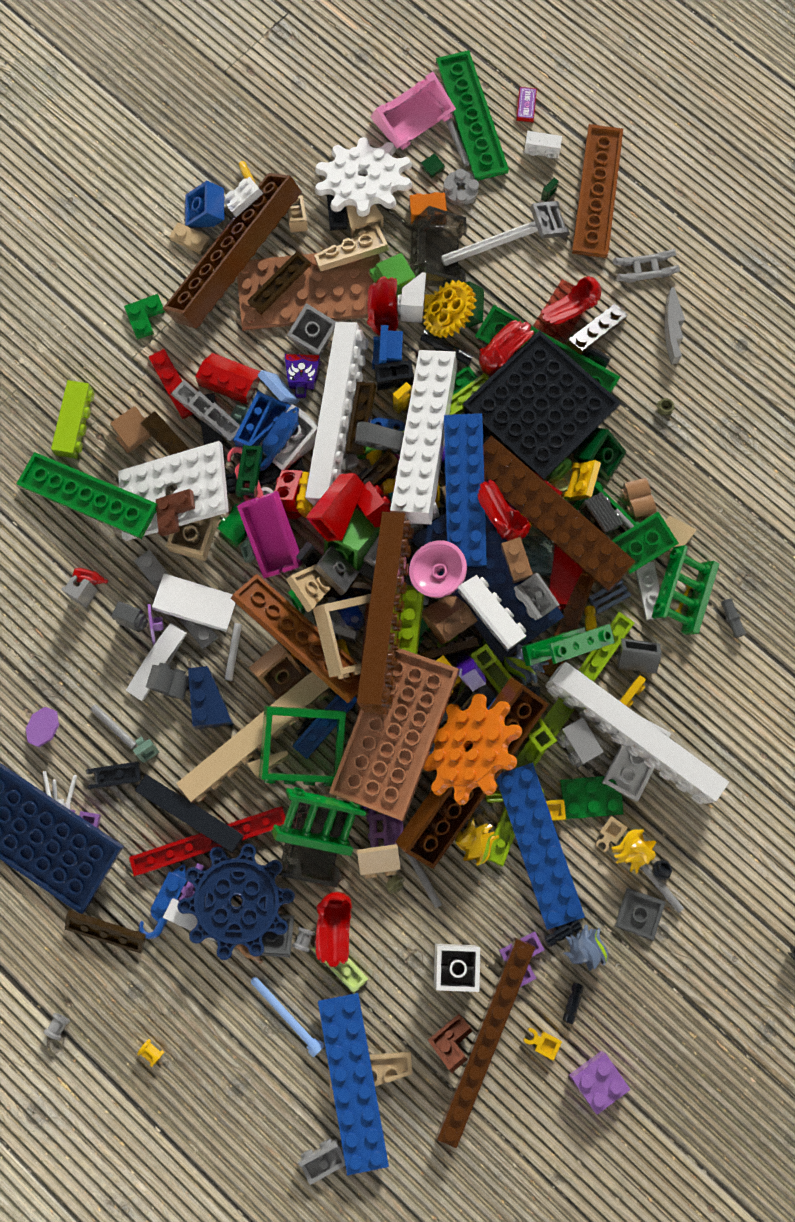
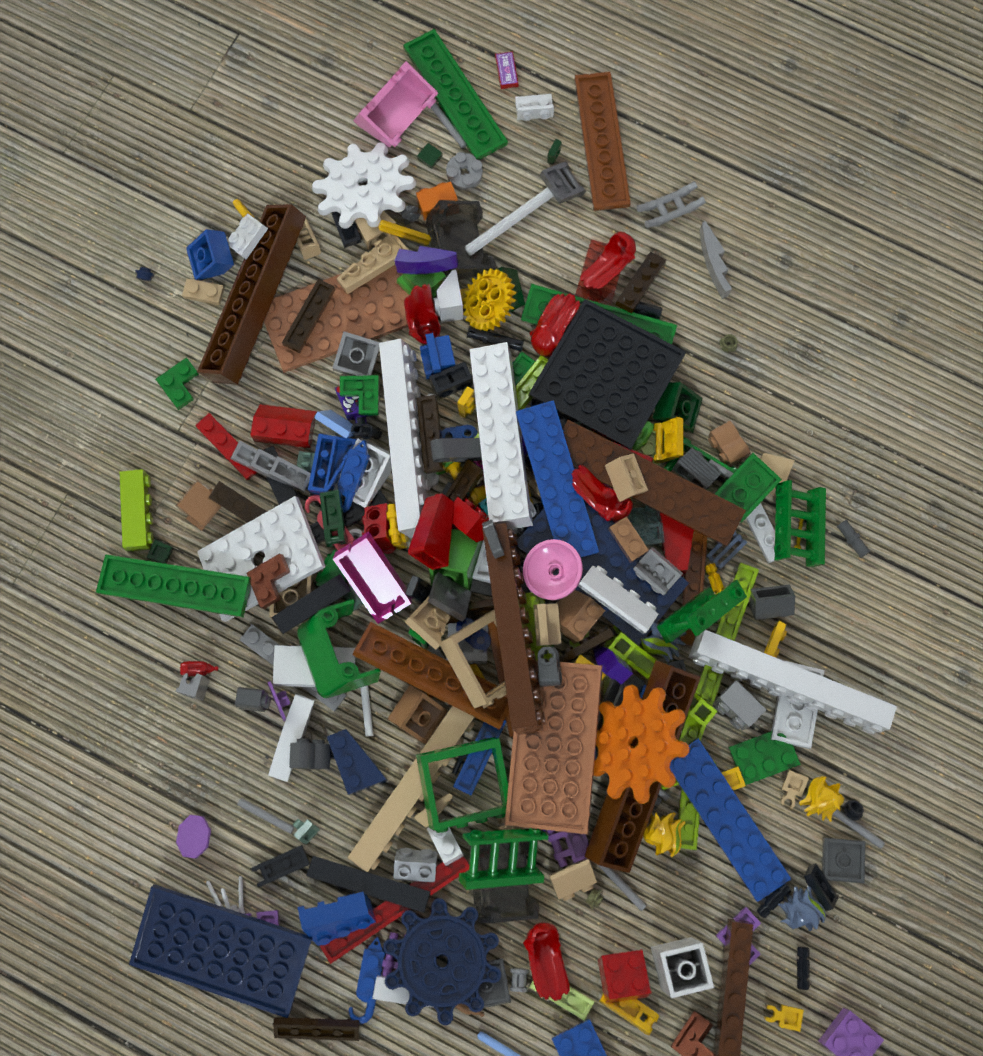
camera: 15 degrees left, 0 degrees up
(84, 463) = (160, 552): none -> dark green tile
(140, 209) = (144, 274): none -> dark blue plate
(150, 836) = (337, 918): none -> blue wedge
(205, 614) = (327, 674): none -> green windscreen
(206, 543) = (311, 604): none -> black tile
(236, 807) = (415, 865): none -> light grey bracket
(270, 797) = (446, 845): none -> white plate
(302, 401) = (366, 431): none -> black pin
(312, 361) = (365, 388): none -> green plate
(388, 229) = (404, 232): none -> yellow axle
(388, 522) = (493, 539): none -> dark grey beam
(398, 993) = (631, 1011): none -> yellow plate
(399, 214) = (410, 214): none -> dark grey plate
(399, 257) = (425, 261): none -> dark purple slope
(401, 962) = (624, 976): none -> red brick
(409, 660) = (549, 671): none -> dark grey piece
(419, 618) = (547, 624): none -> tan panel
(530, 501) = (626, 477): none -> tan panel
(610, 931) = (821, 887): none -> black plate

